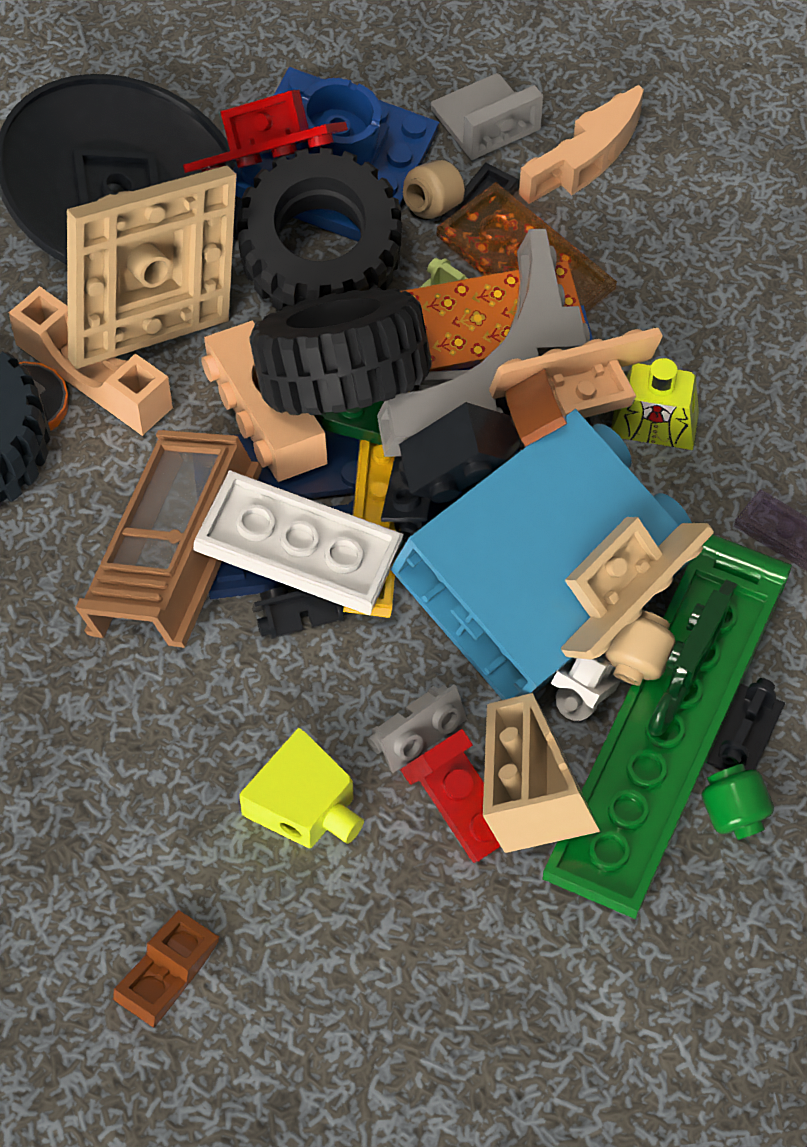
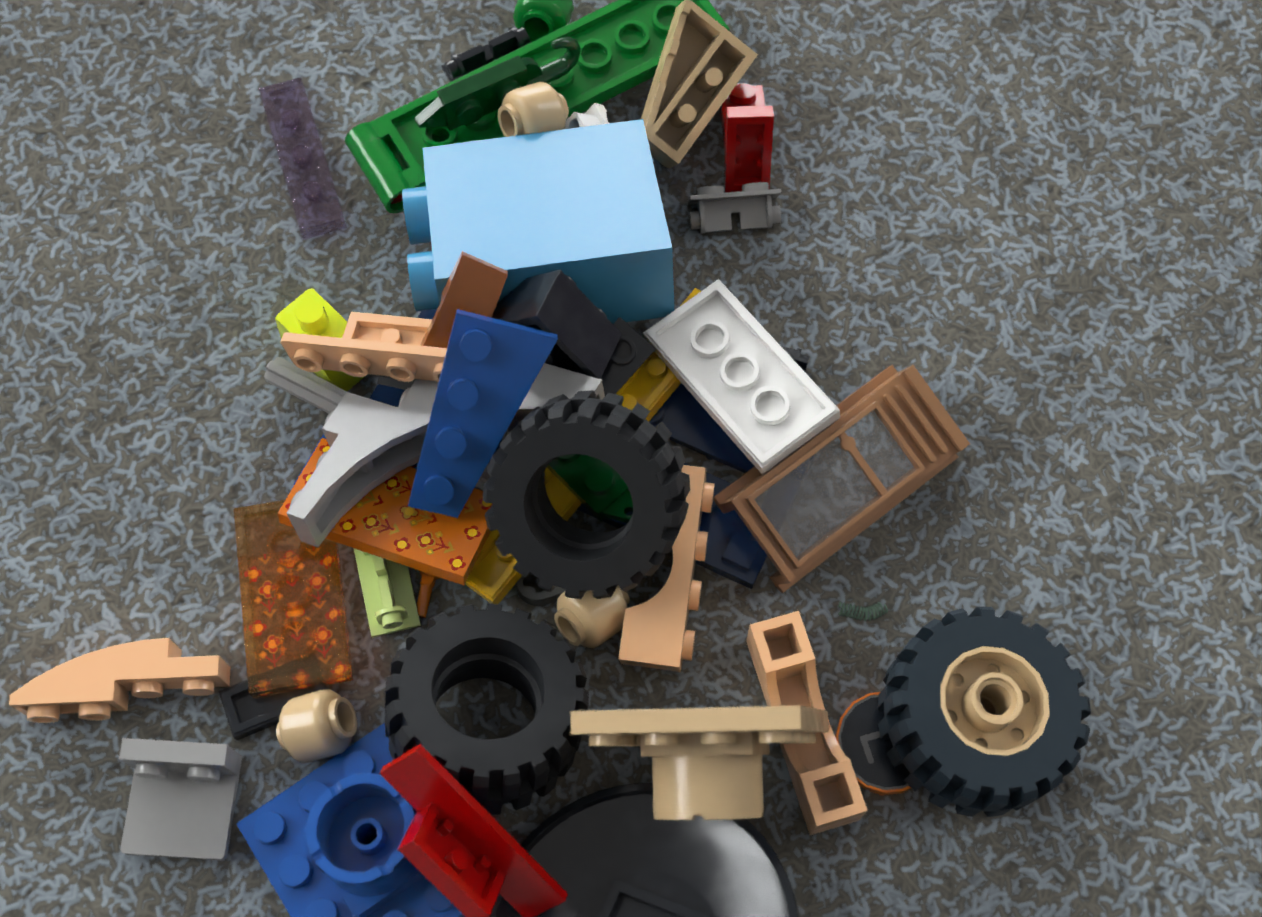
camera: 145 degrees left, 10 degrees up
(89, 482) = (862, 609): none -> sand green leg
(166, 969) = (1044, 147): dark orange slope -> none
(302, 794) = (865, 201): neon yellow torso -> none
(471, 357) = (476, 398): none -> blue wing
(623, 577) = (510, 128): tan bracket -> none

